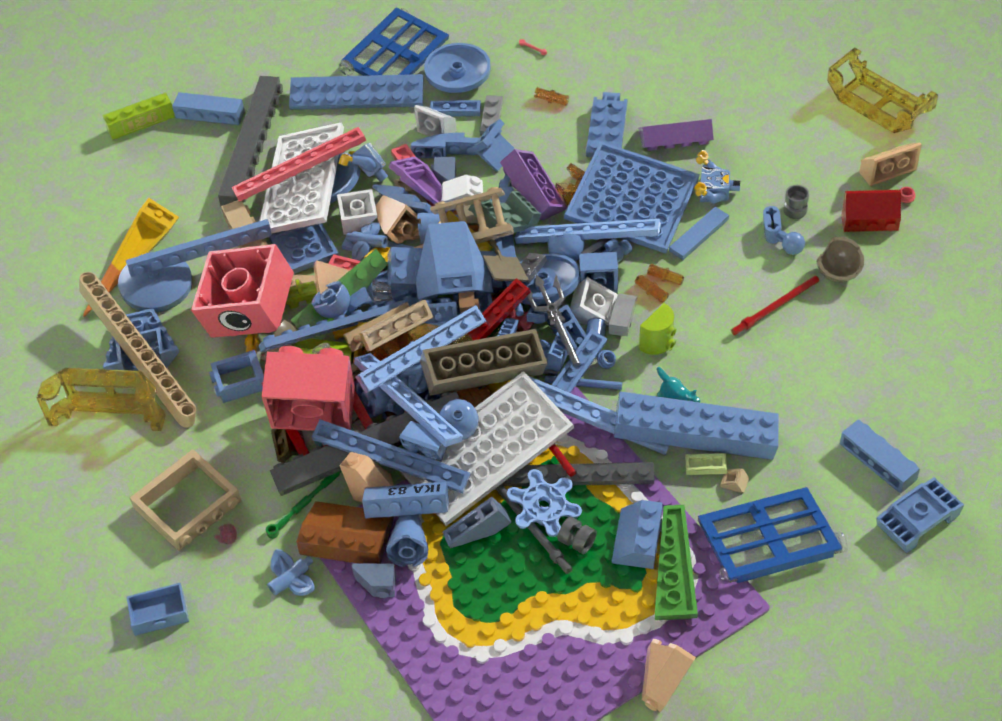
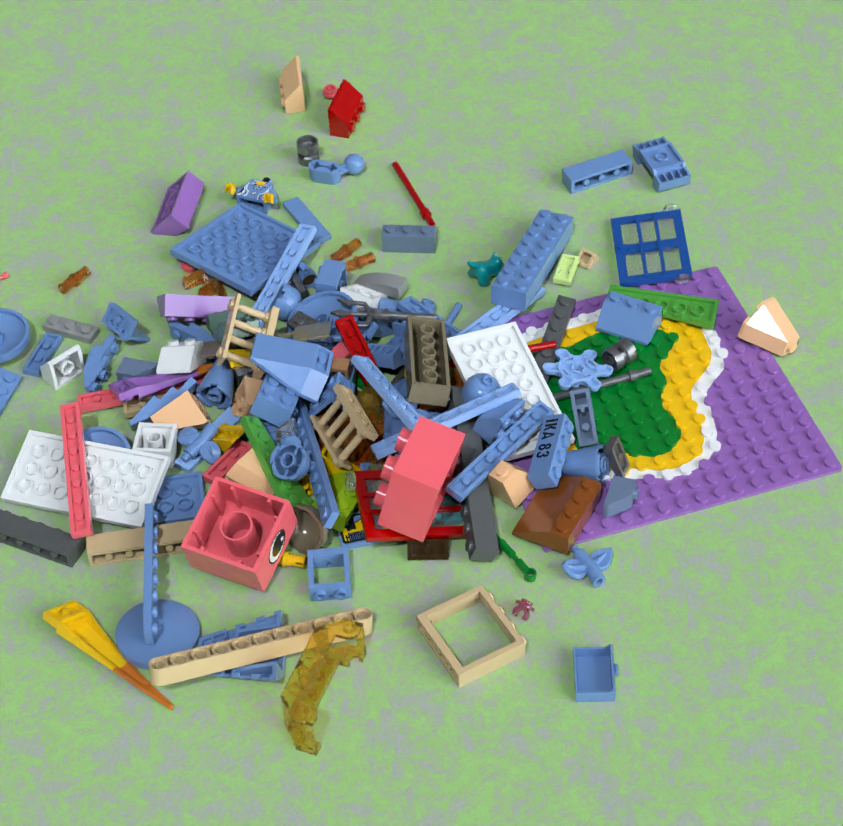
camera: 75 degrees left, 5 degrees down
(367, 159) = (95, 418): medium blue torso -> none
(420, 561) = (617, 456): none -> flat silver plate
(606, 122) = (137, 249): medium blue hinge -> none
(658, 331) = (417, 260): lime brick -> none
(704, 318) = (409, 238): none -> sand blue slope
(841, 260) = (391, 139): dark tan cylinder -> none
(911, 105) = (207, 70): clear yellow windscreen -> none

